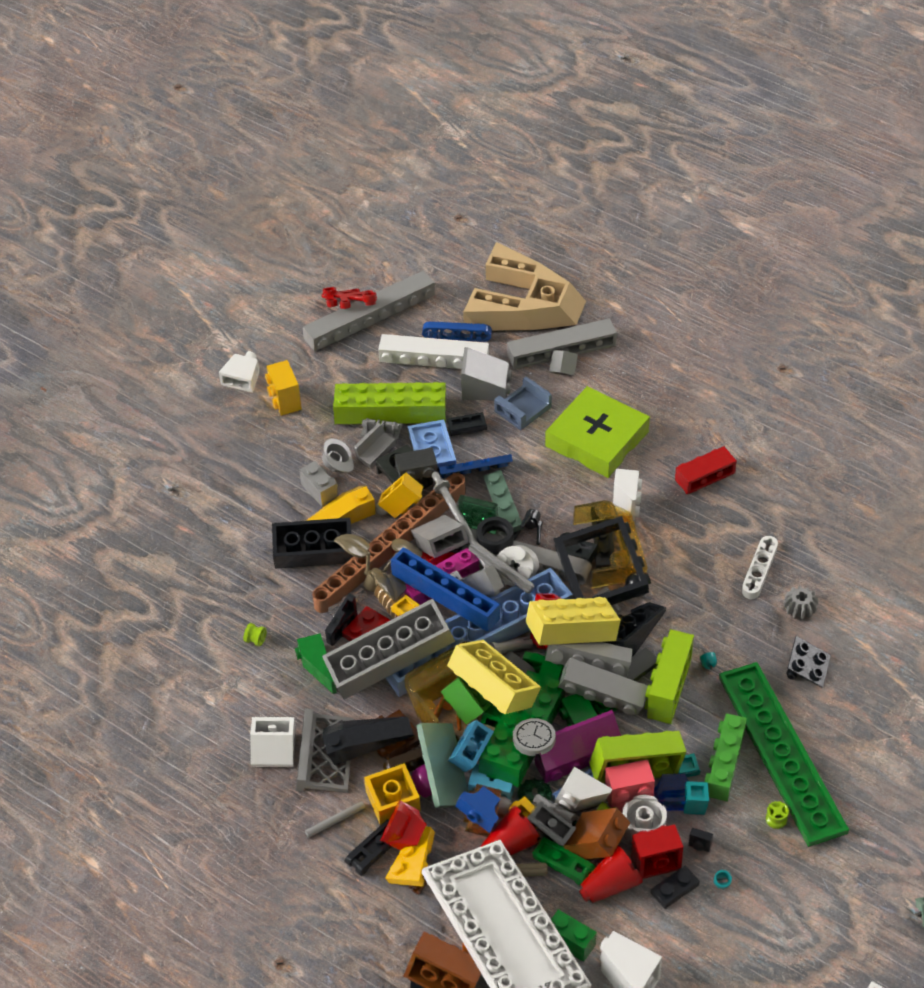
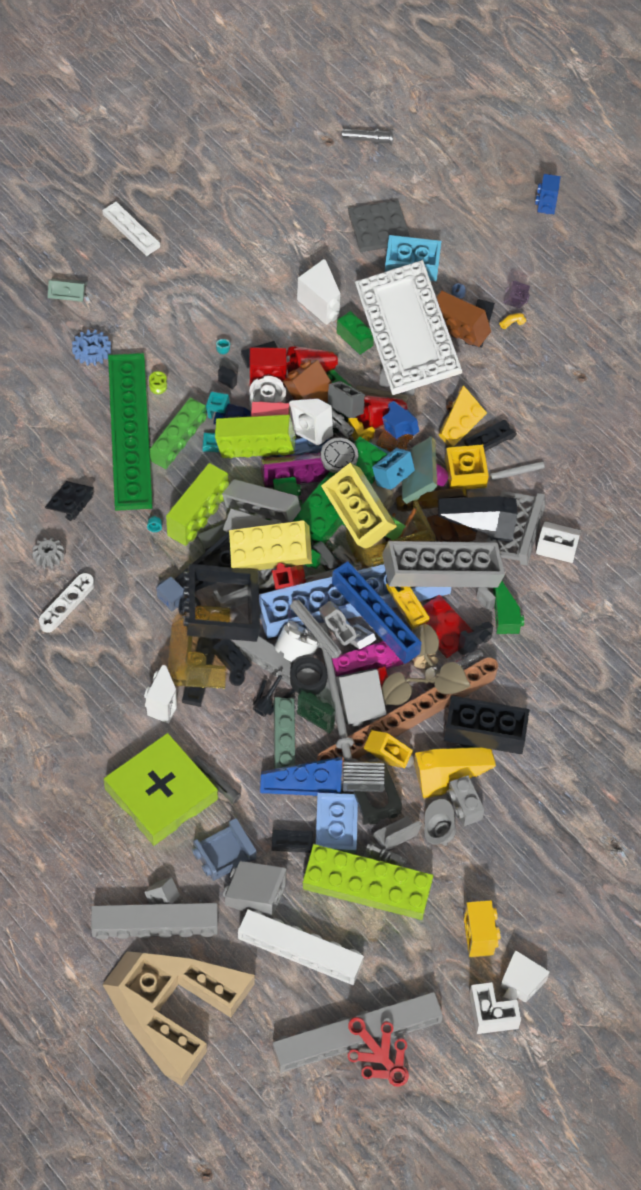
camera: 170 degrees left, 10 degrees up
(255, 634) = (558, 649): lime wheel -> none
(263, 339) = (492, 1015): none -> white brick
(404, 827) = (464, 433): red slope -> none
(456, 329) = (266, 972): blue beam -> none
(559, 456) = (222, 785): none -> flat silver pin
(661, 593) = (169, 593): none -> sand blue brick
(705, 470) = (70, 715): red brick -> none
(872, 836) = (91, 347): none -> medium blue gear

